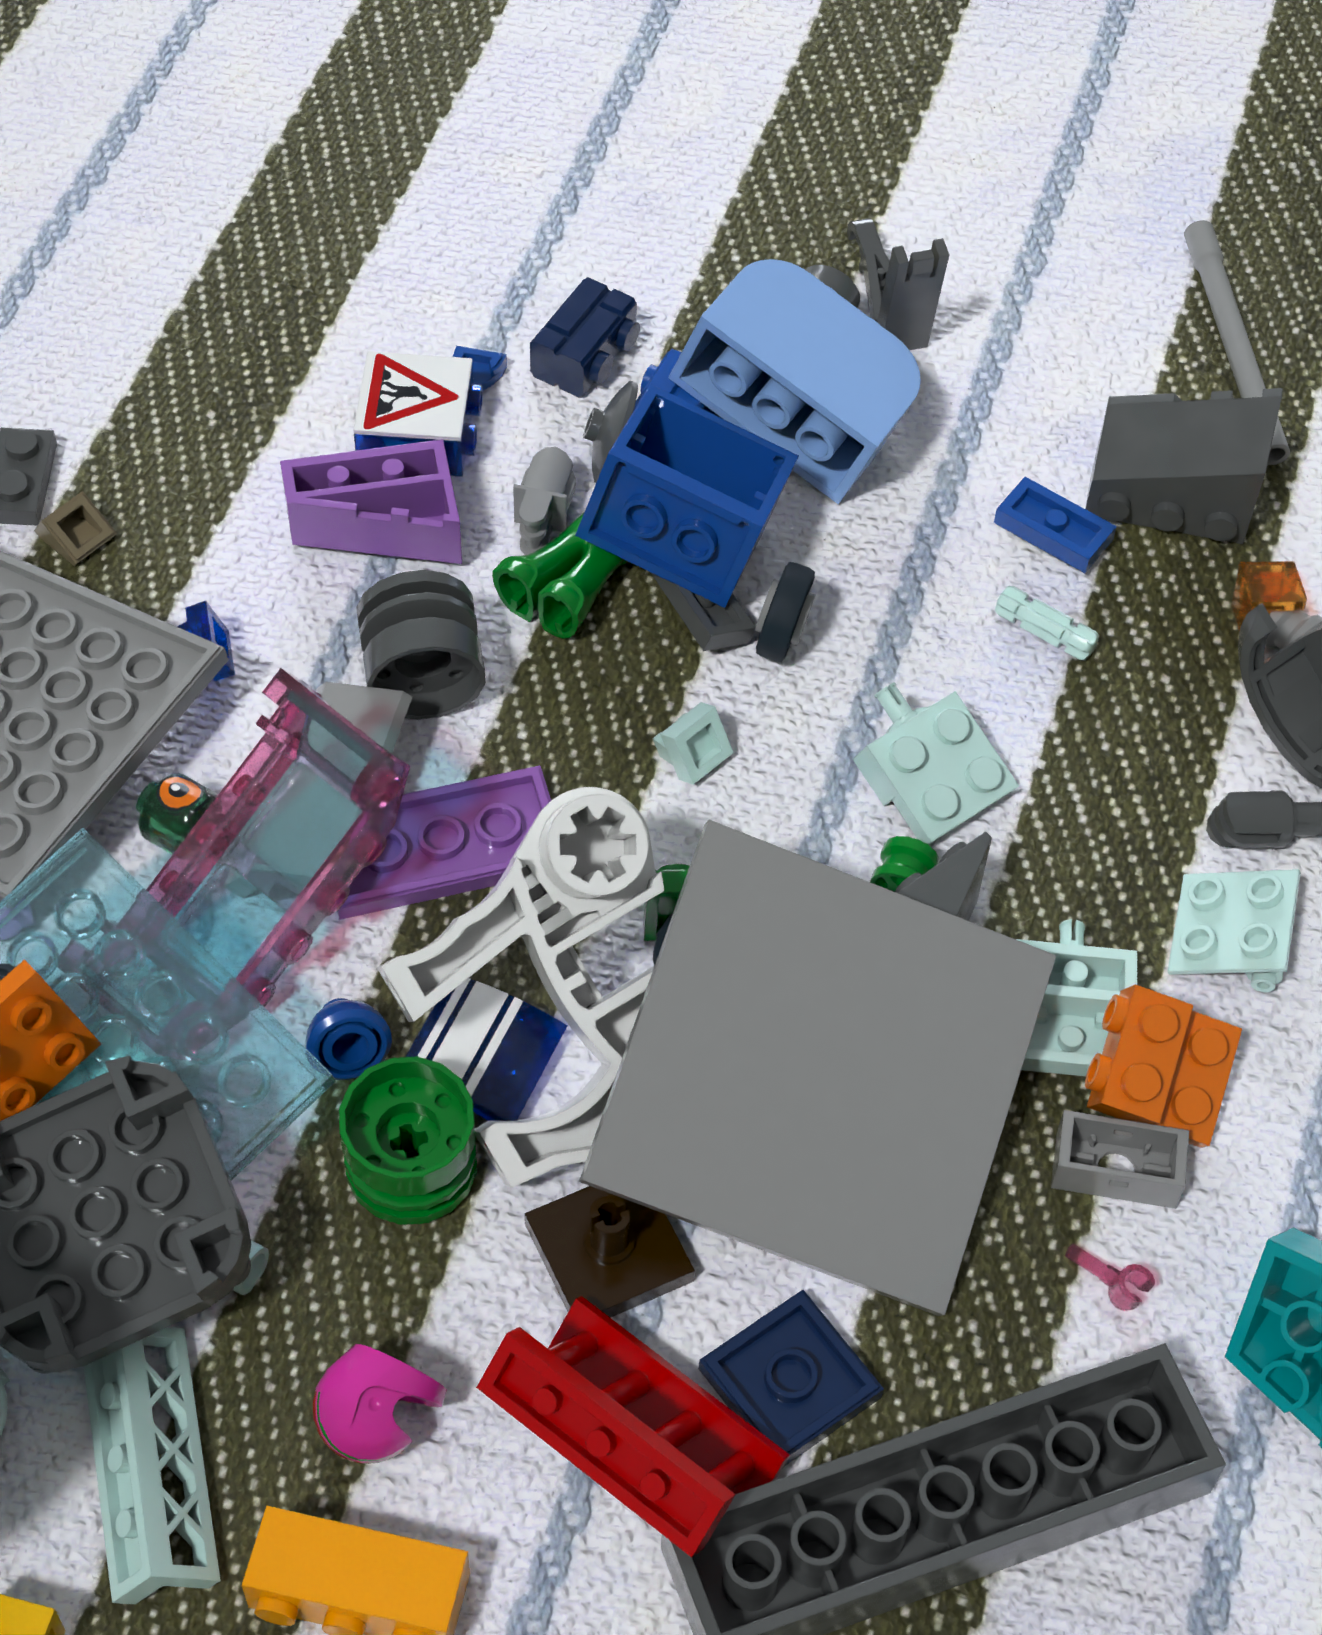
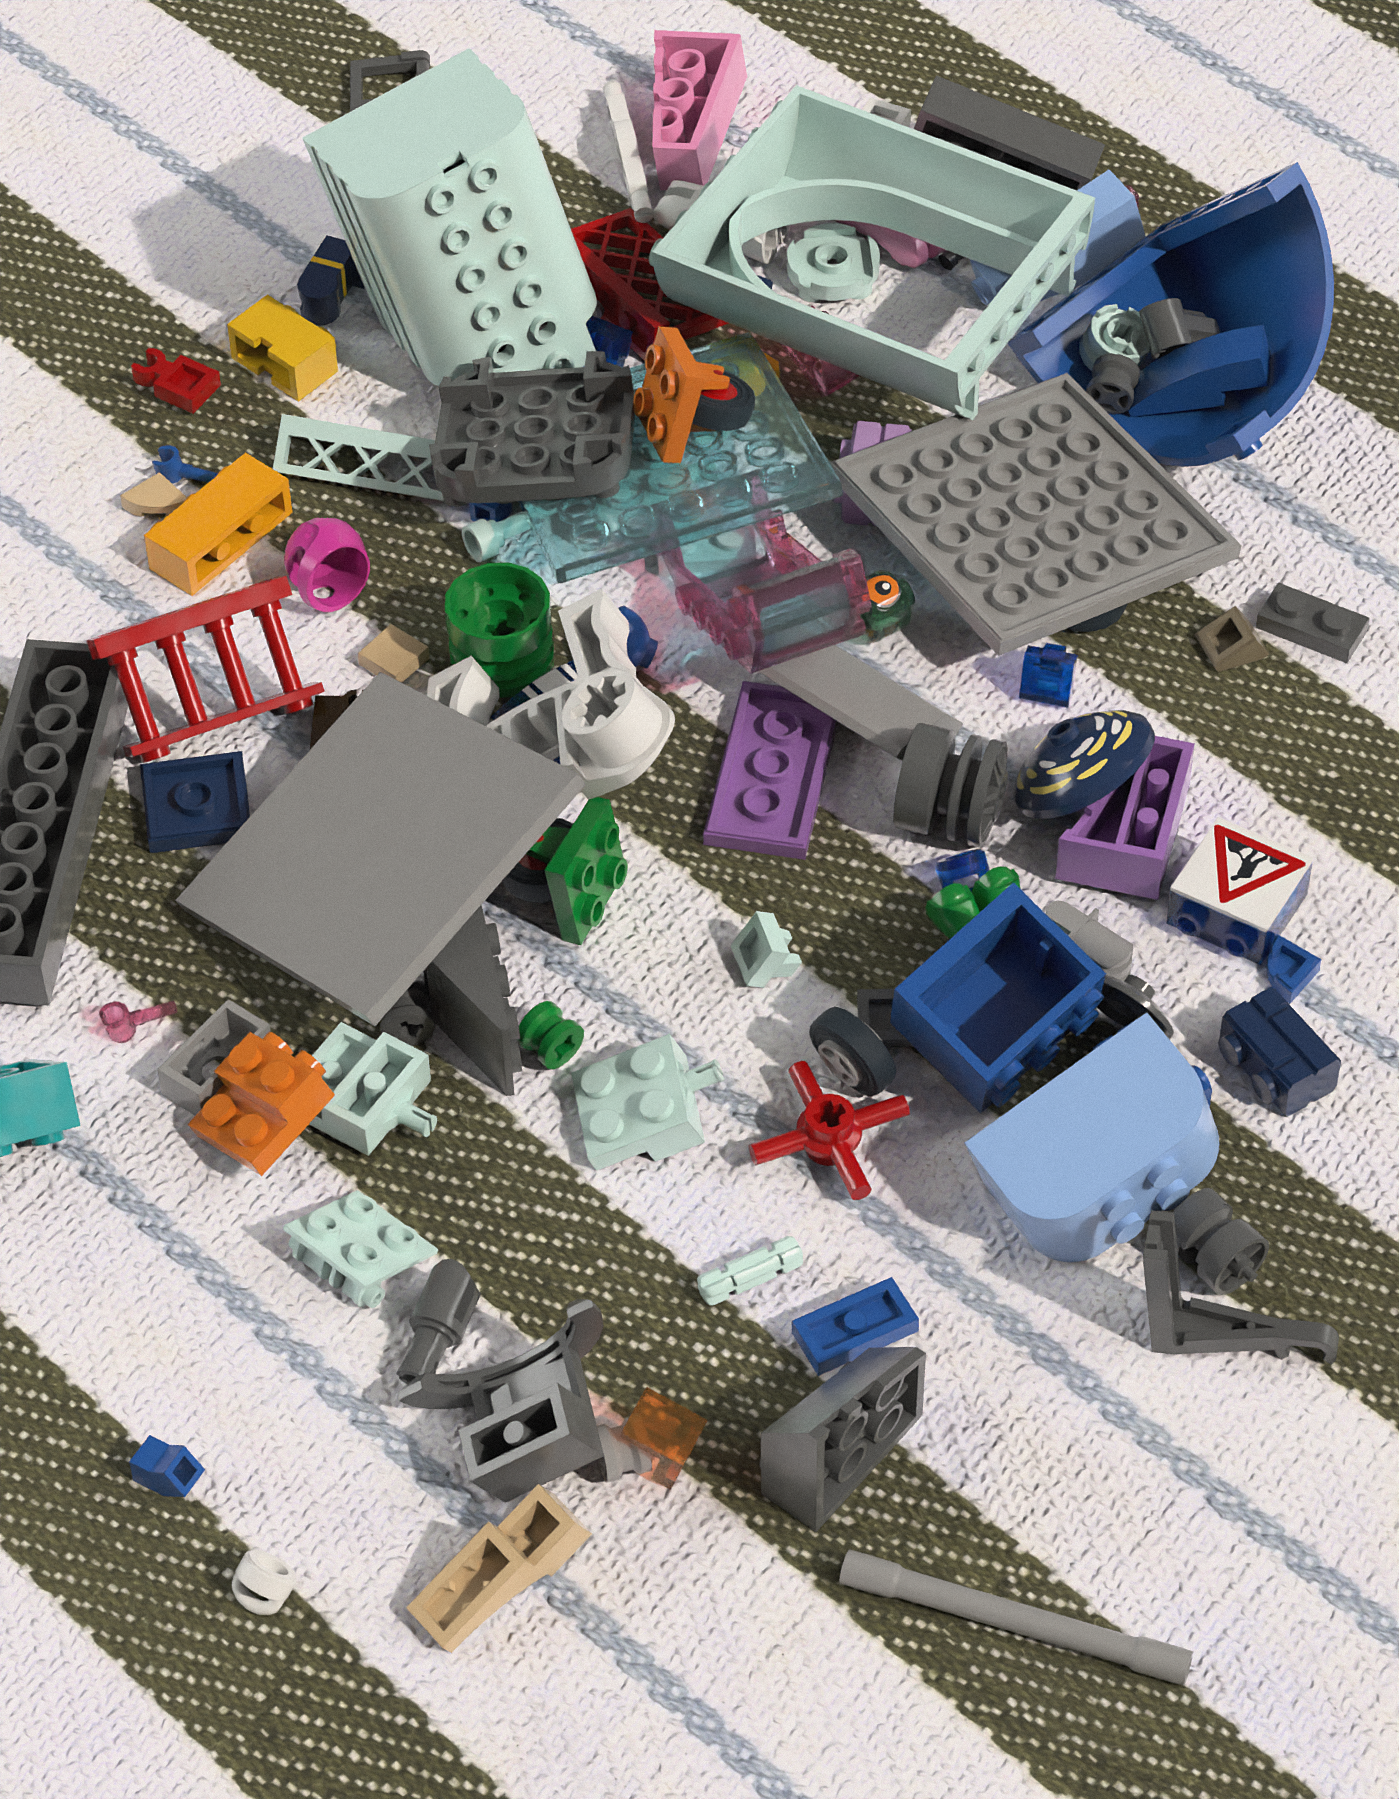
camera: 120 degrees right, 5 degrees down
(338, 507) = (1082, 762): none -> dark blue dish
(465, 1277) = (394, 654): none -> tan tile
(501, 625) = (961, 866): none -> clear blue tile
(871, 614) = (829, 1130): none -> red bar

